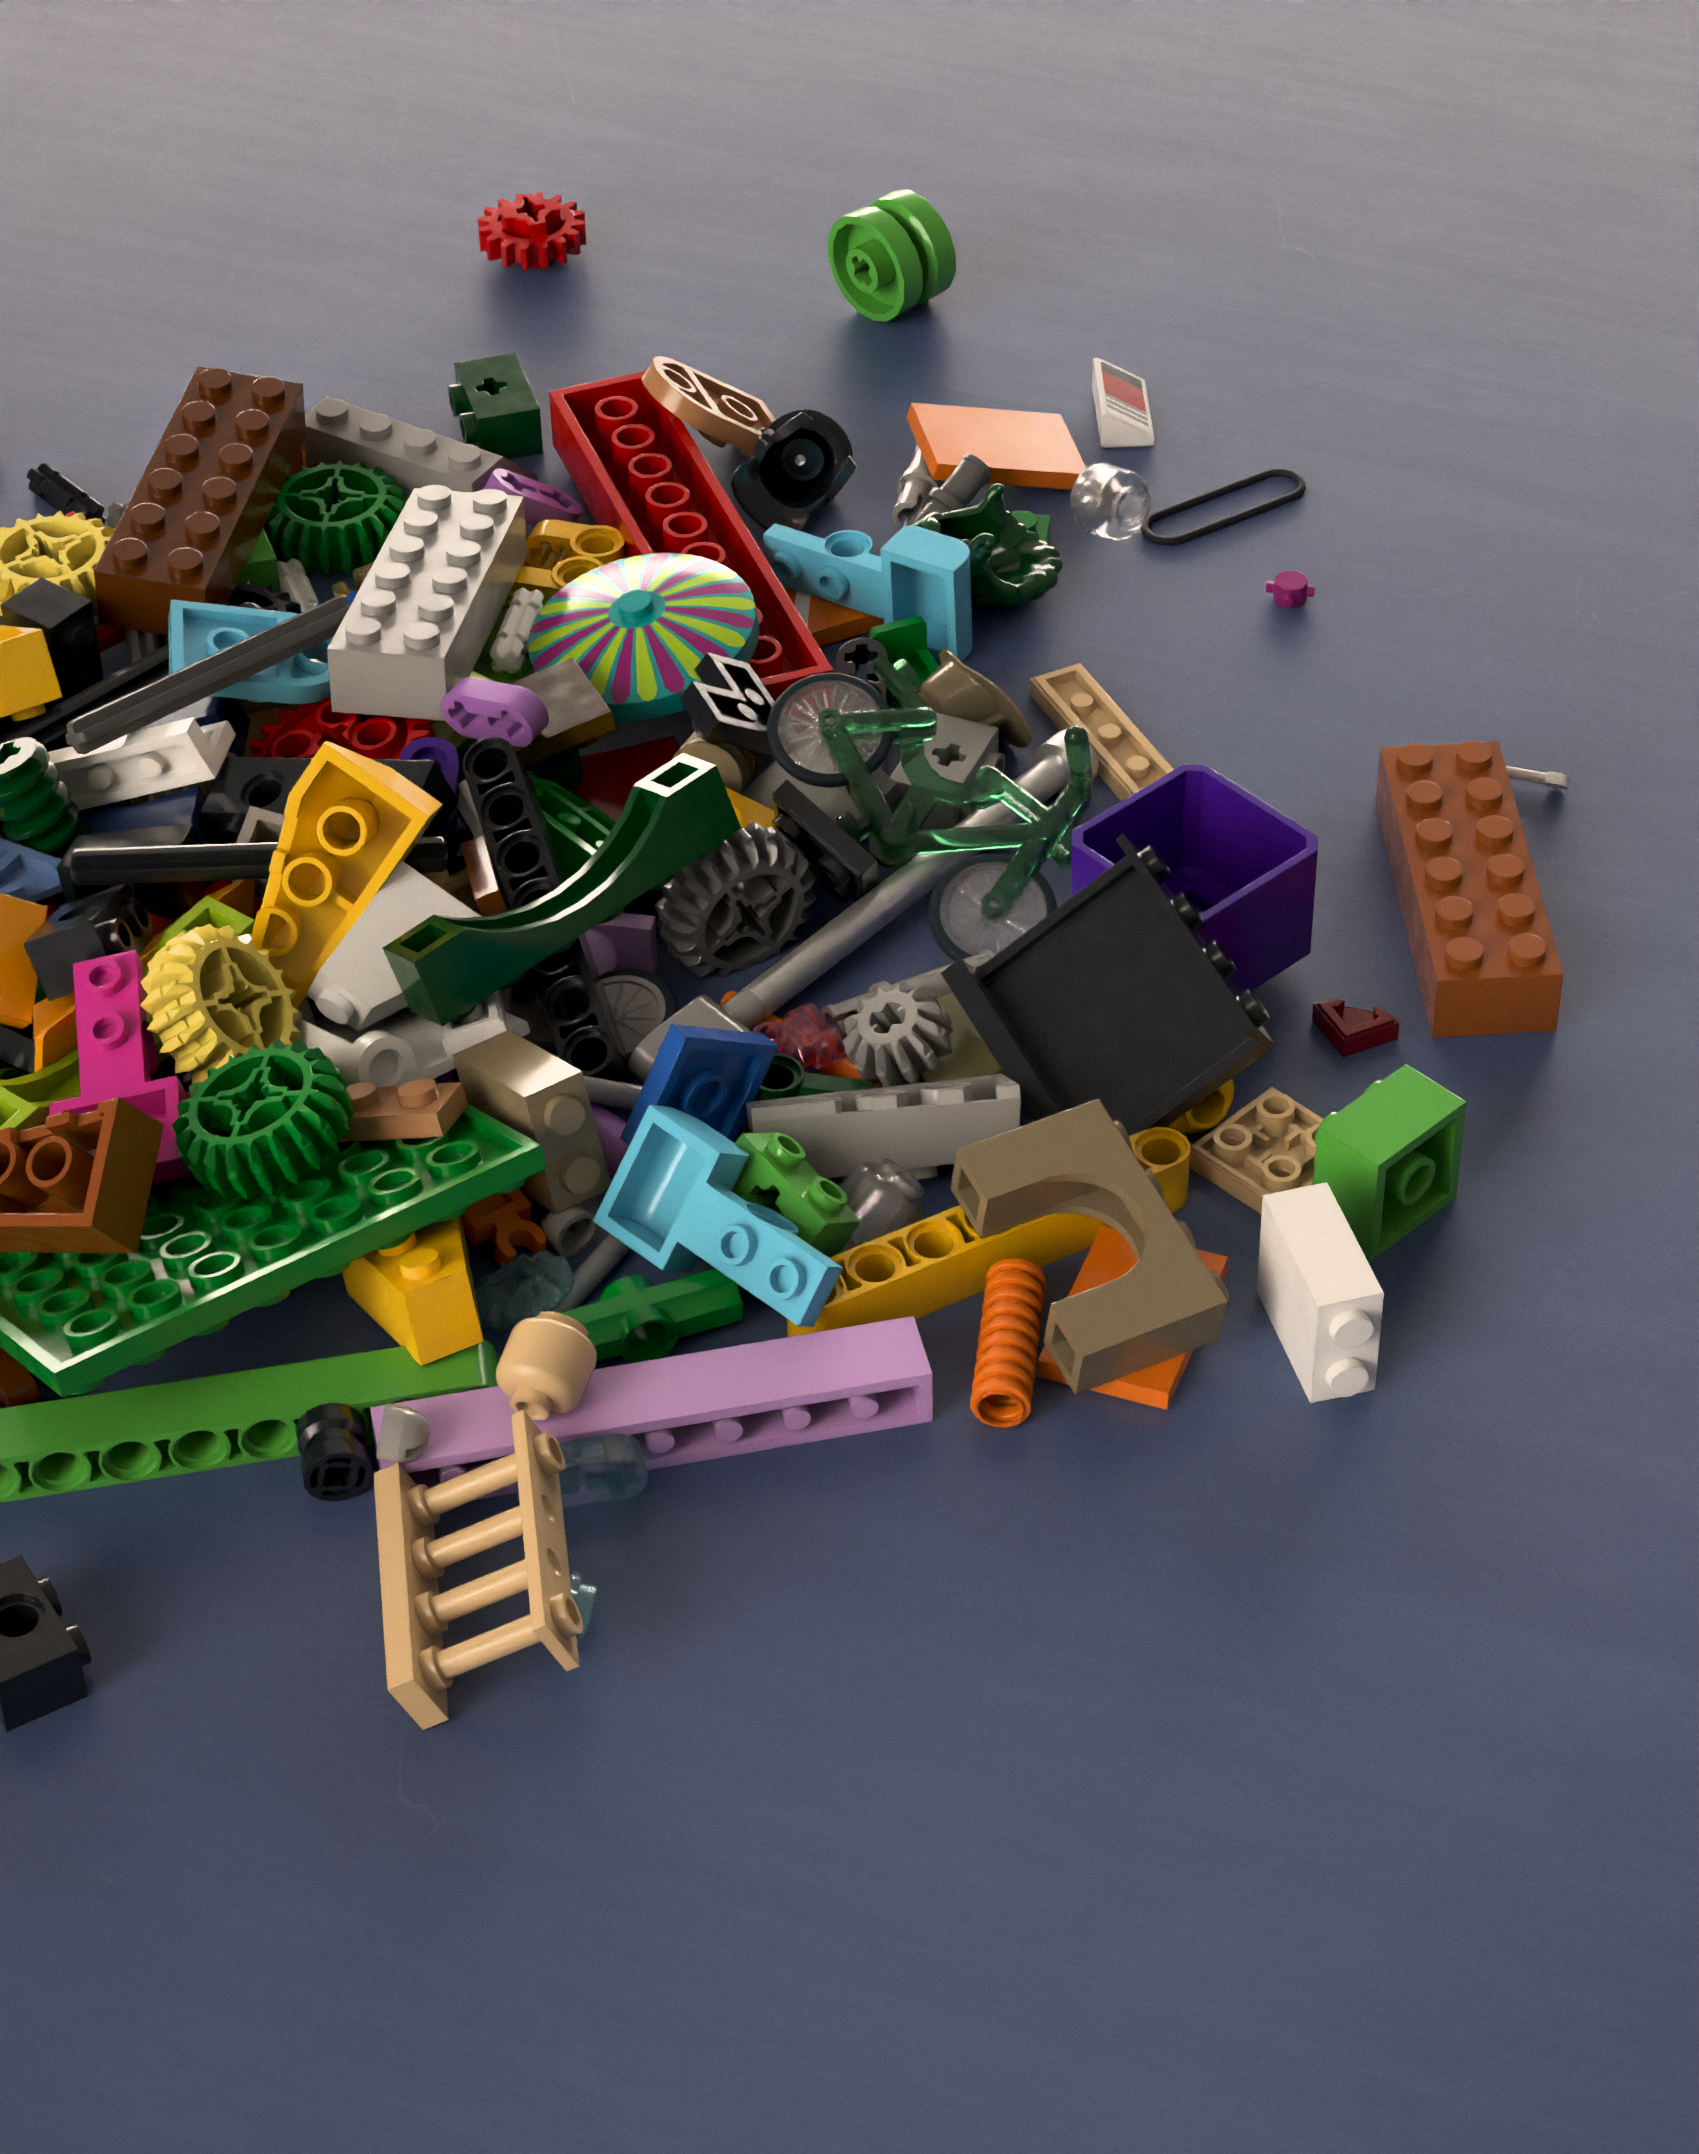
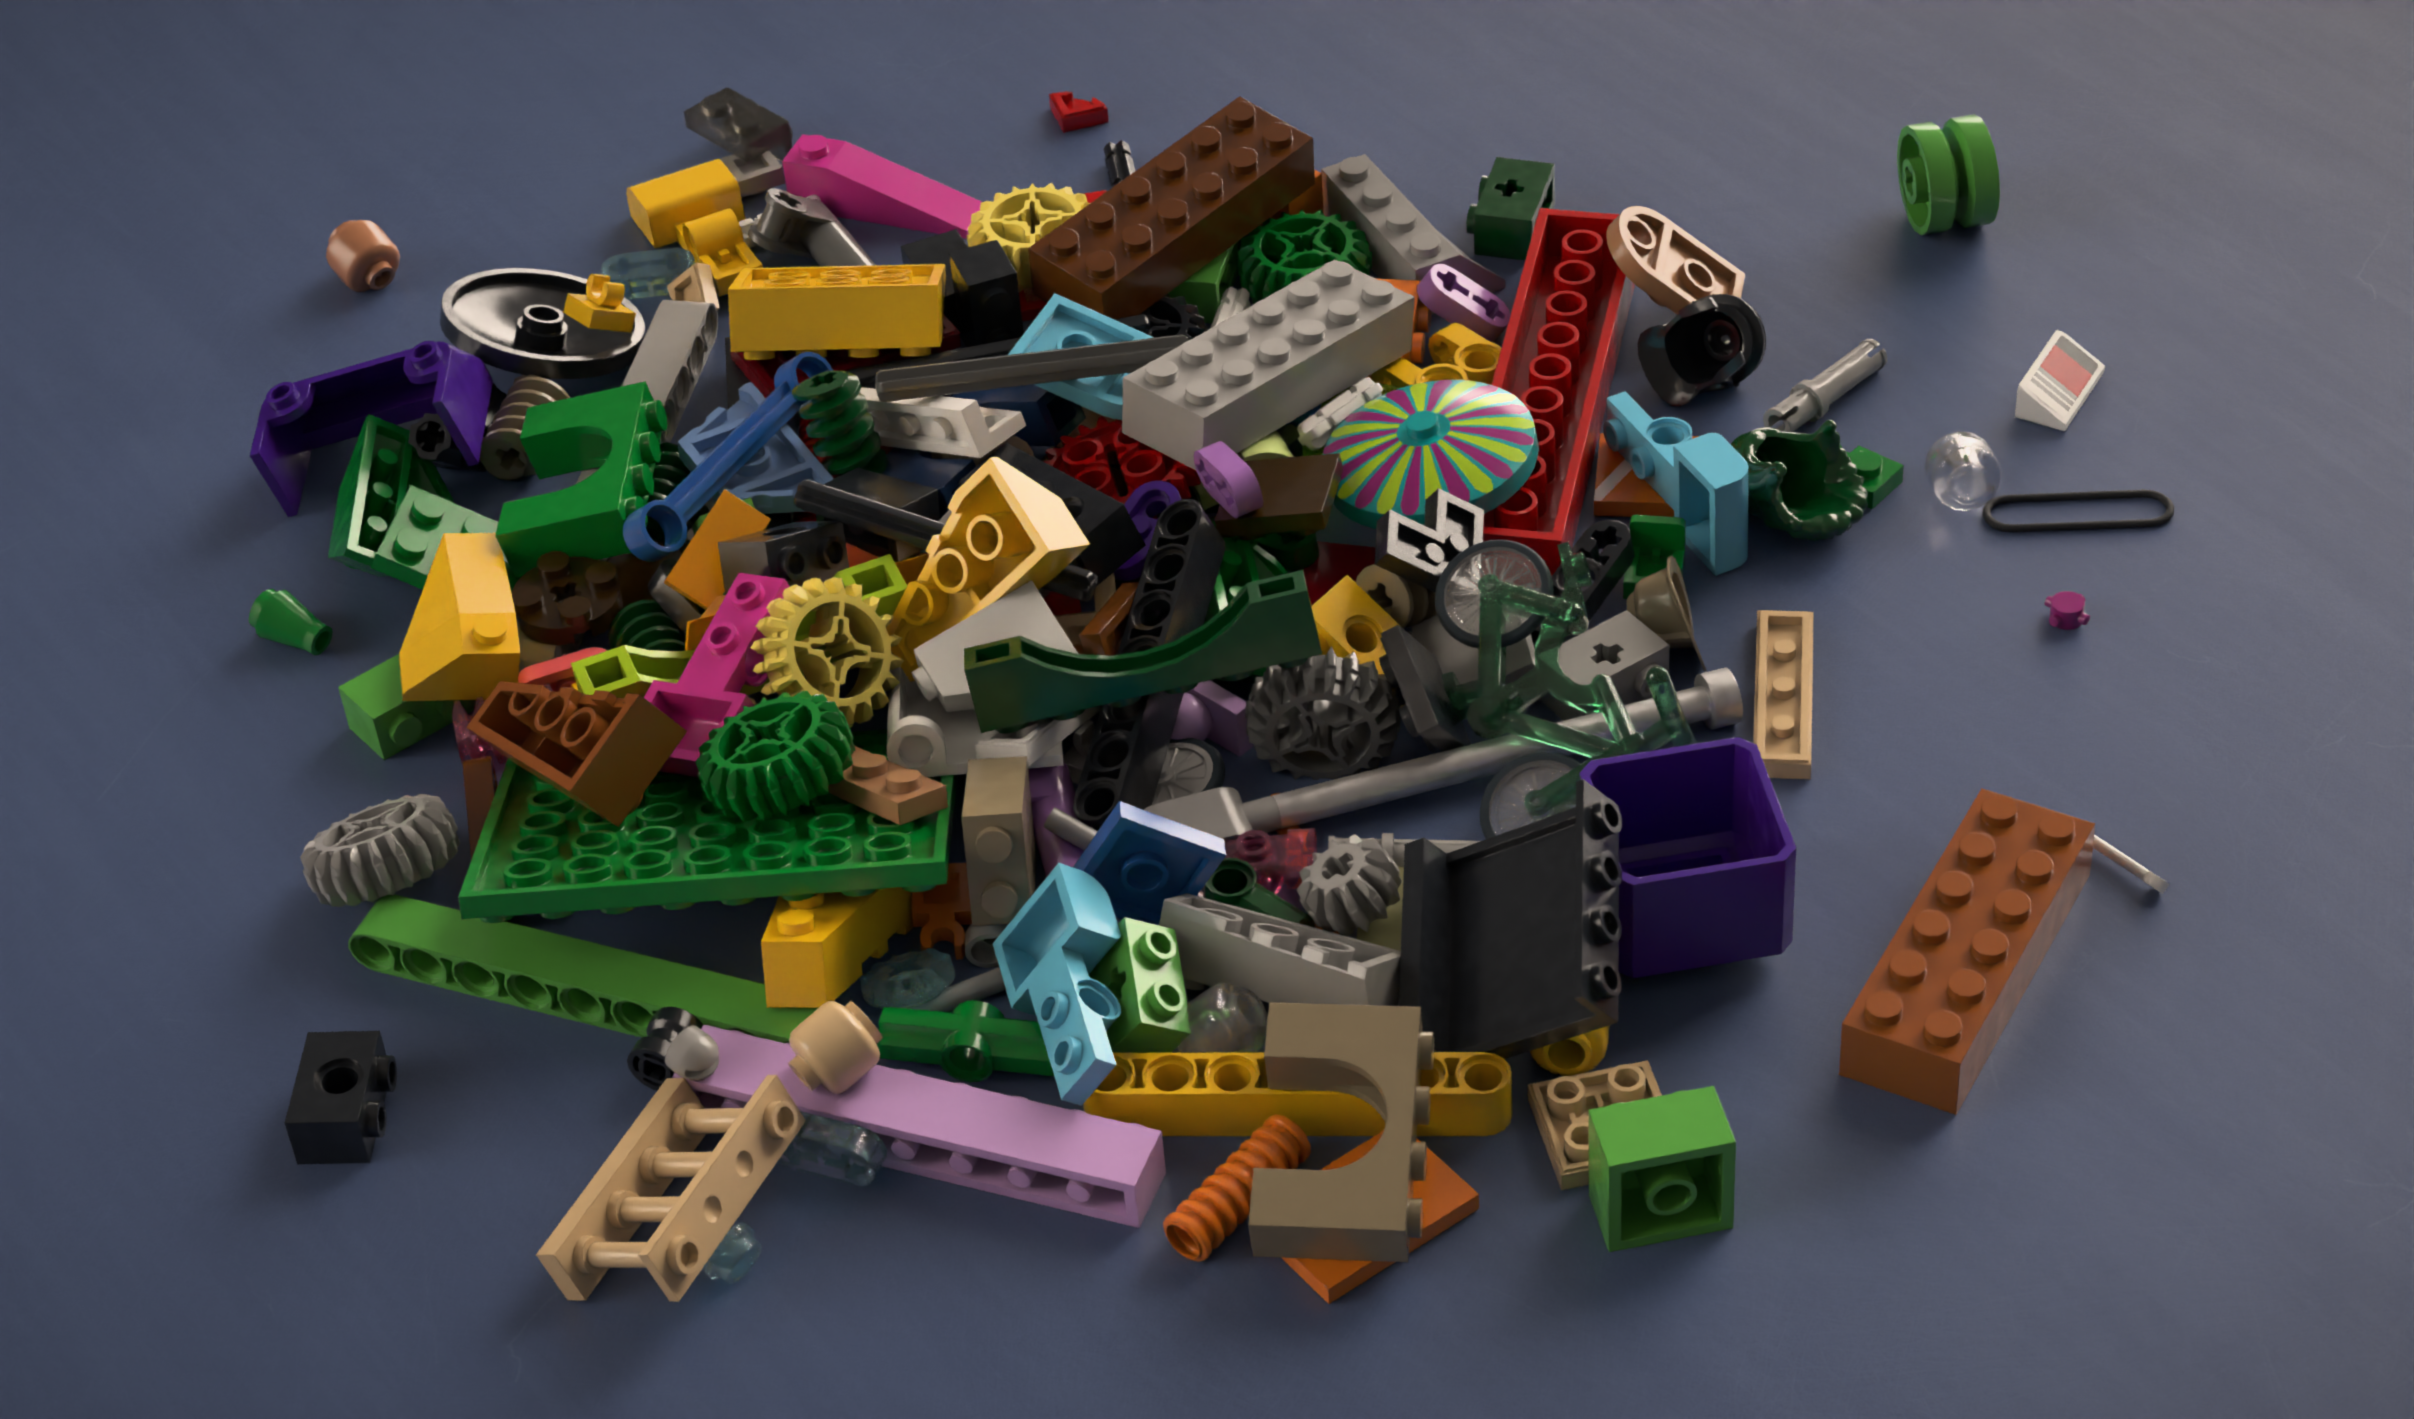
camera: 35 degrees right, 0 degrees up
(532, 231) = (1675, 55): red gear -> none
(958, 488) = (1836, 406): dark grey pin -> none
(1015, 445) = (1902, 383): tile -> none
(1319, 1292) = (1501, 1257): white brick -> none
(1354, 1028) = (1773, 1036): dark red tile -> none

